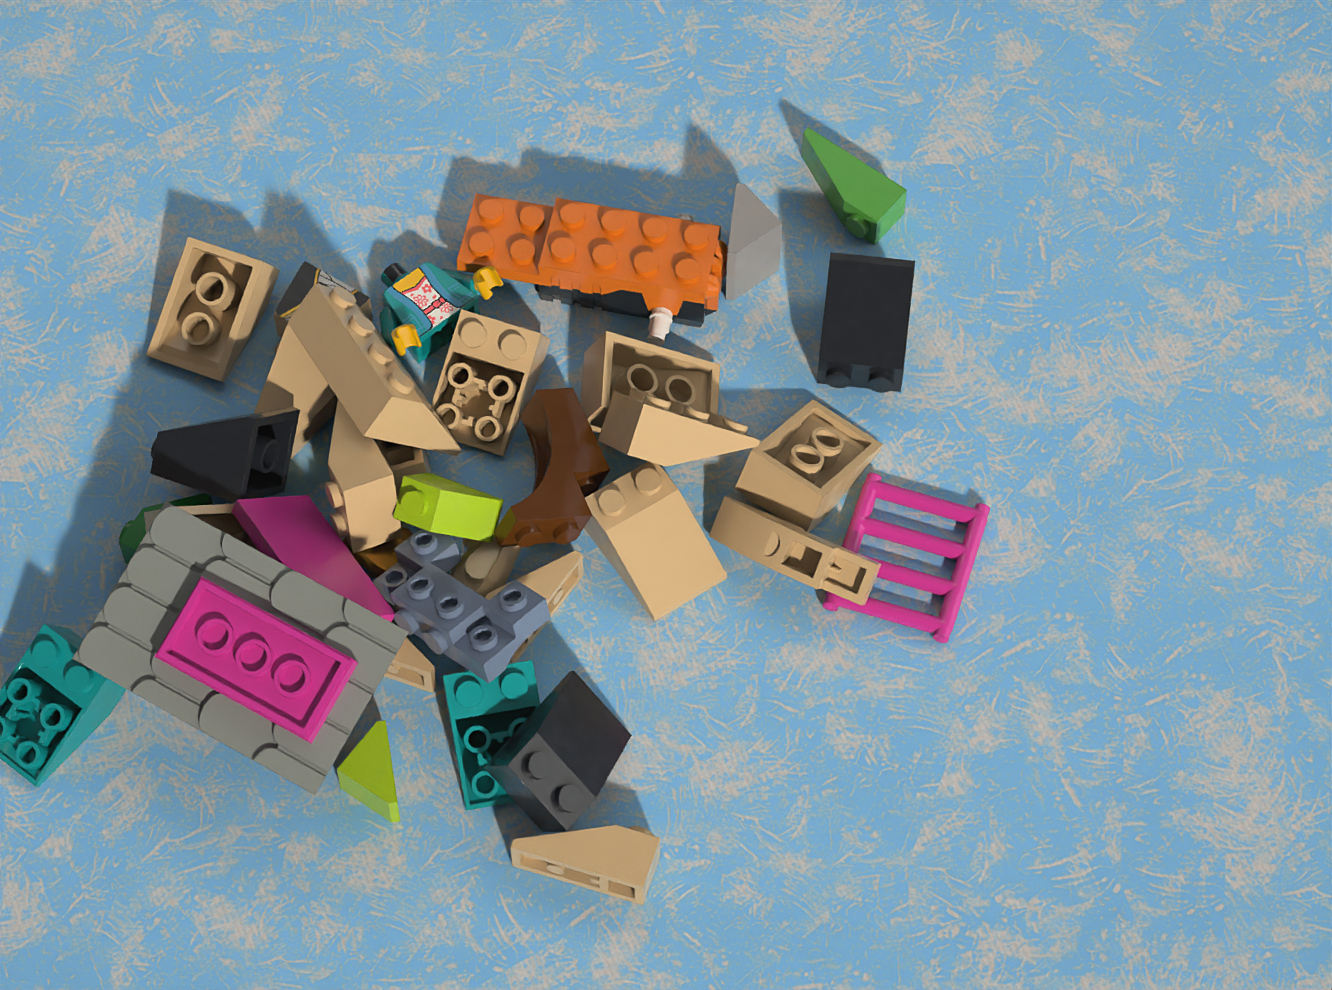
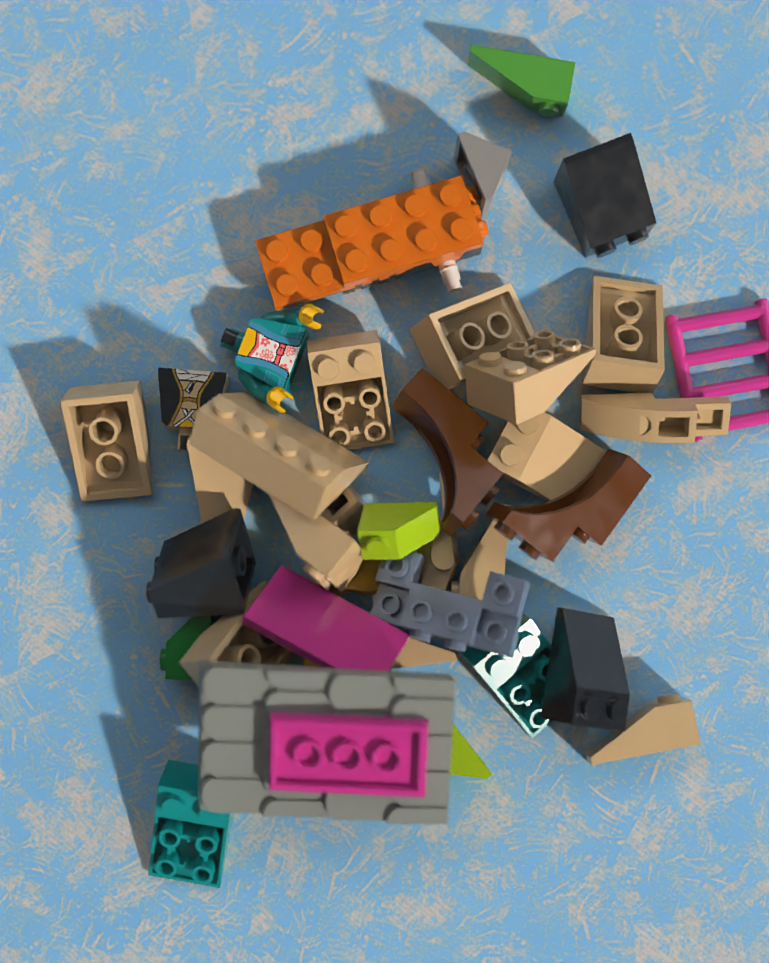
camera: 30 degrees left, 25 degrees up
(660, 604) = (584, 512): none -> reddish brown arch

